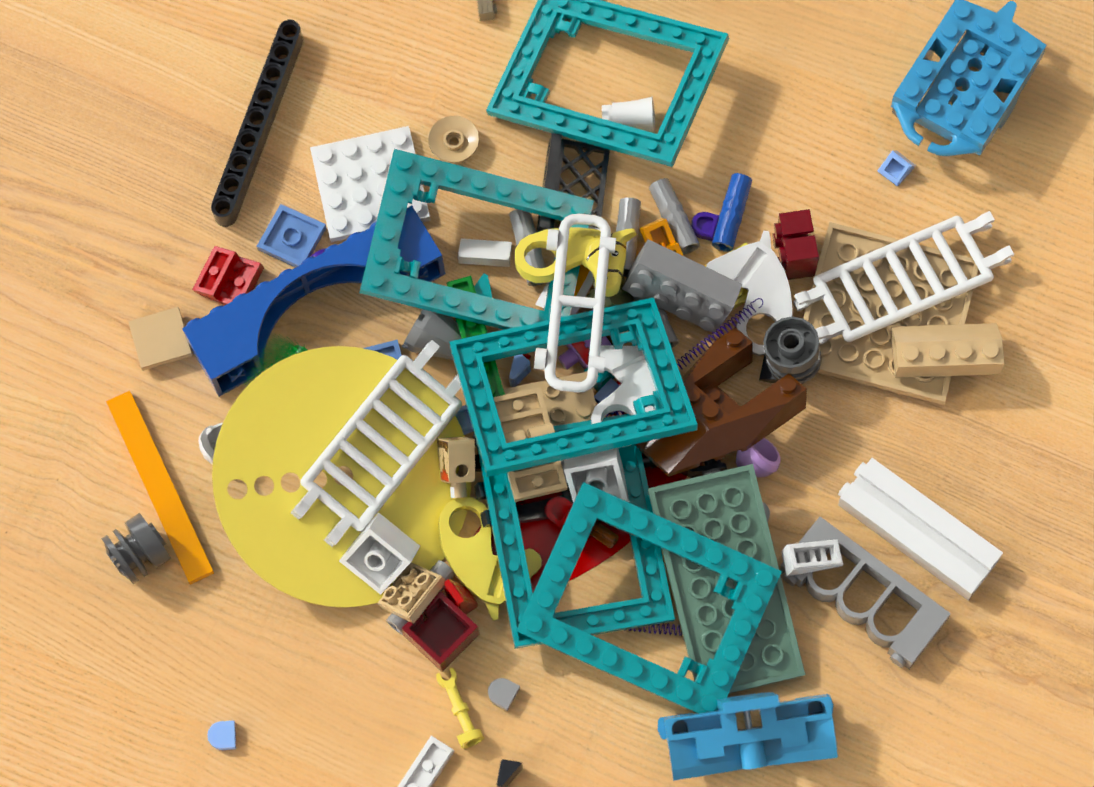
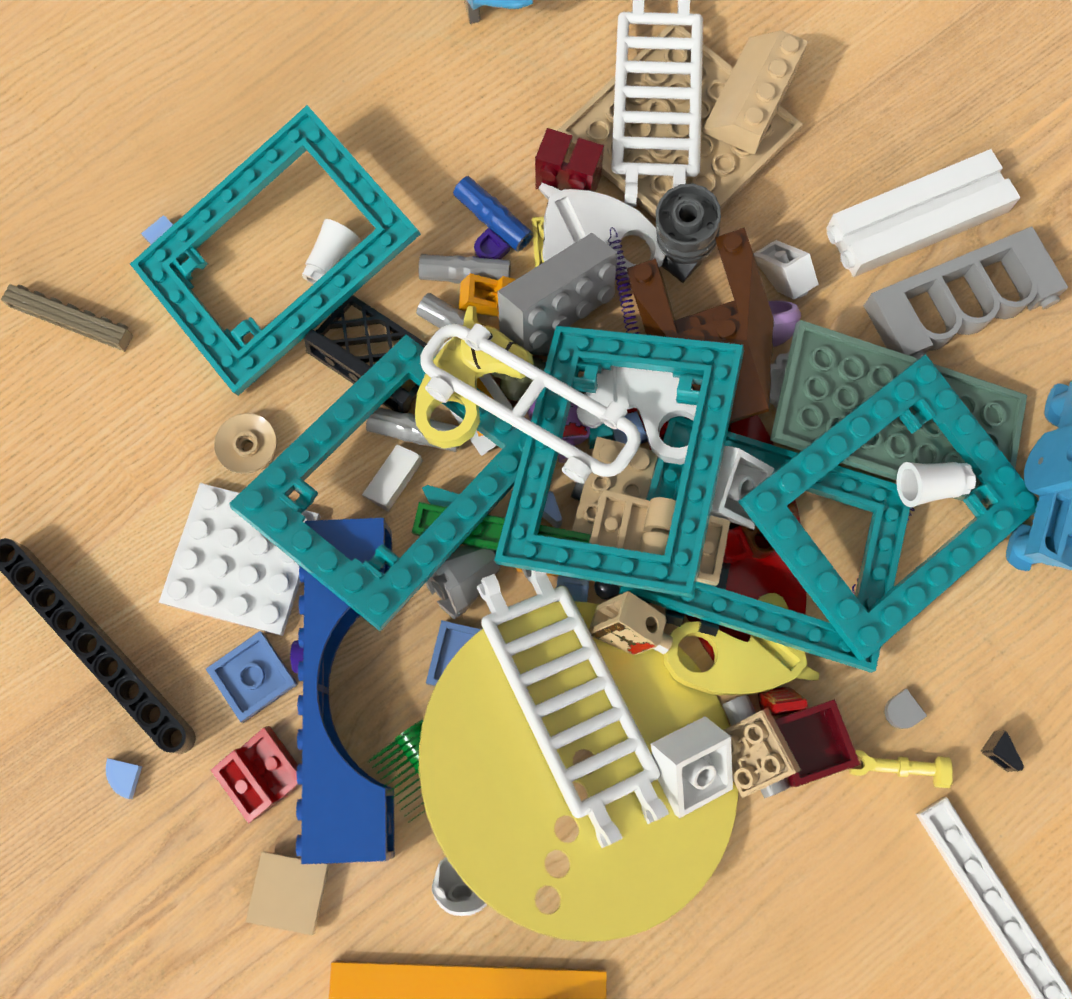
camera: 65 degrees left, 5 degrees up
(181, 193) = (122, 777): none -> light blue tile
(682, 623) = (933, 481): none -> white plant
(802, 567) = (910, 339): white slope -> none
(809, 447) = (787, 269): none -> white slope
(896, 167) = (532, 47): light blue slope -> none

